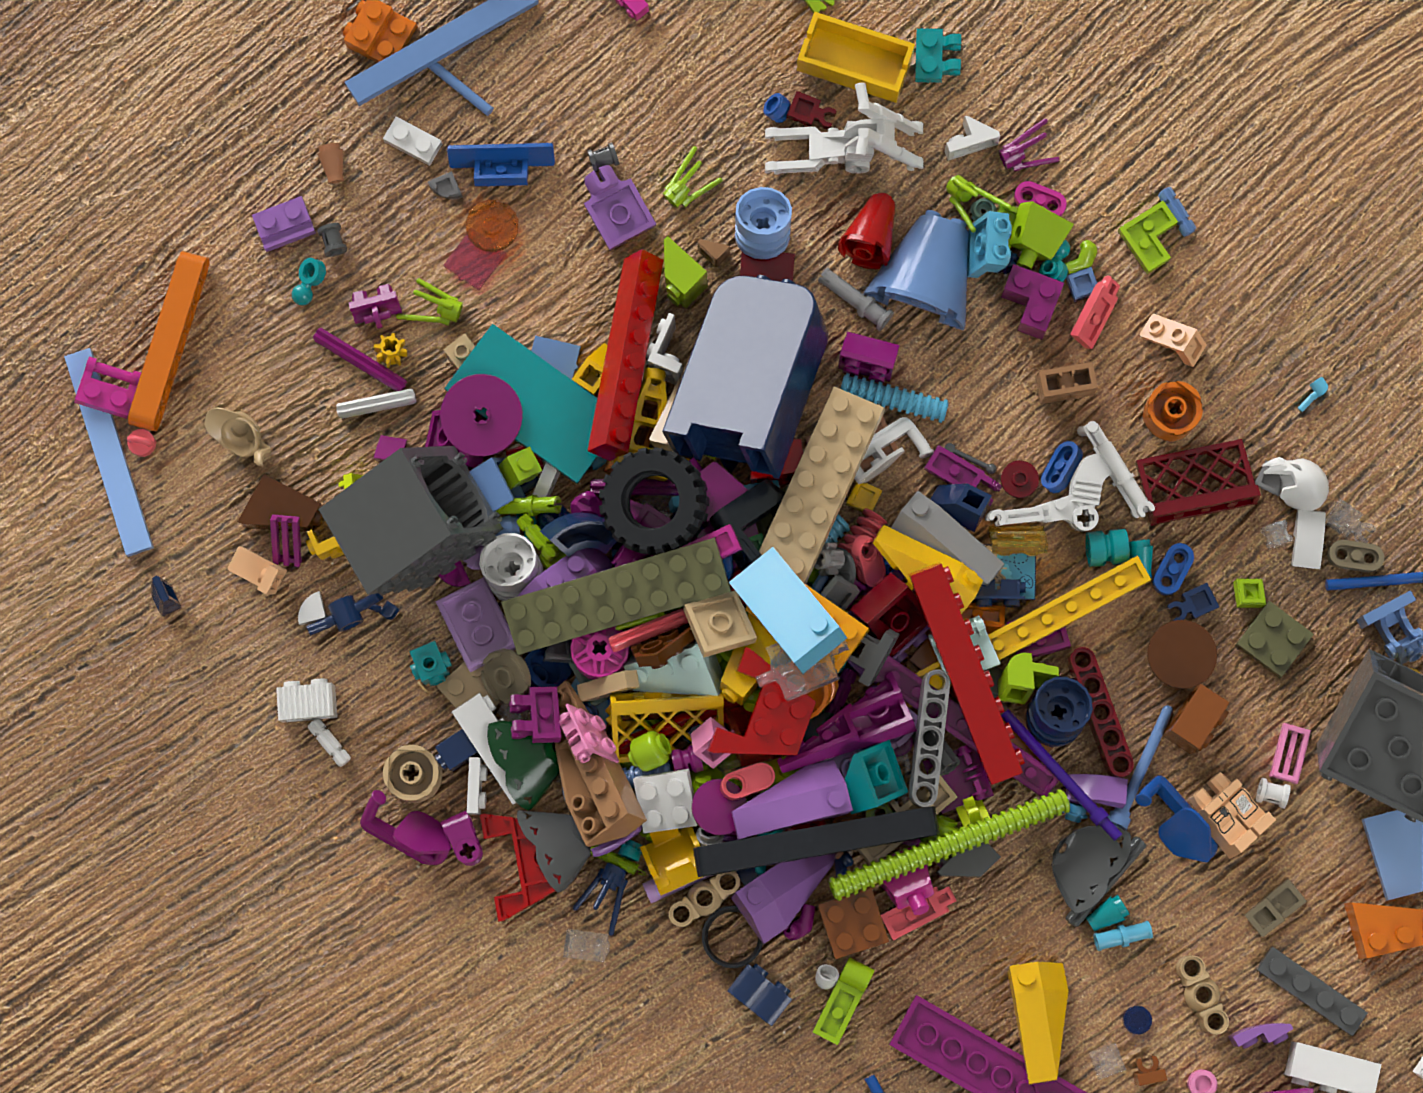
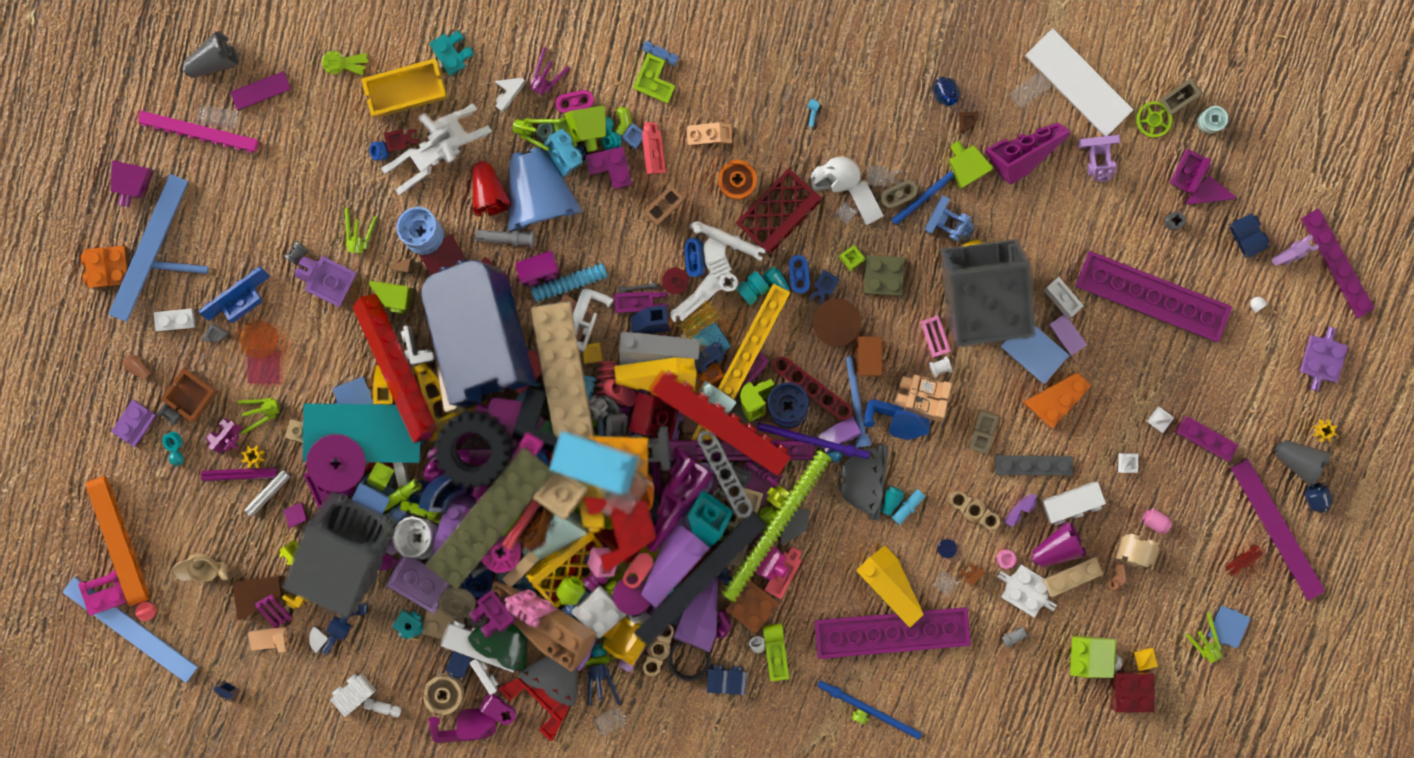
camera: 40 degrees left, 10 degrees up
(373, 235) = (192, 394): none -> dark orange piece

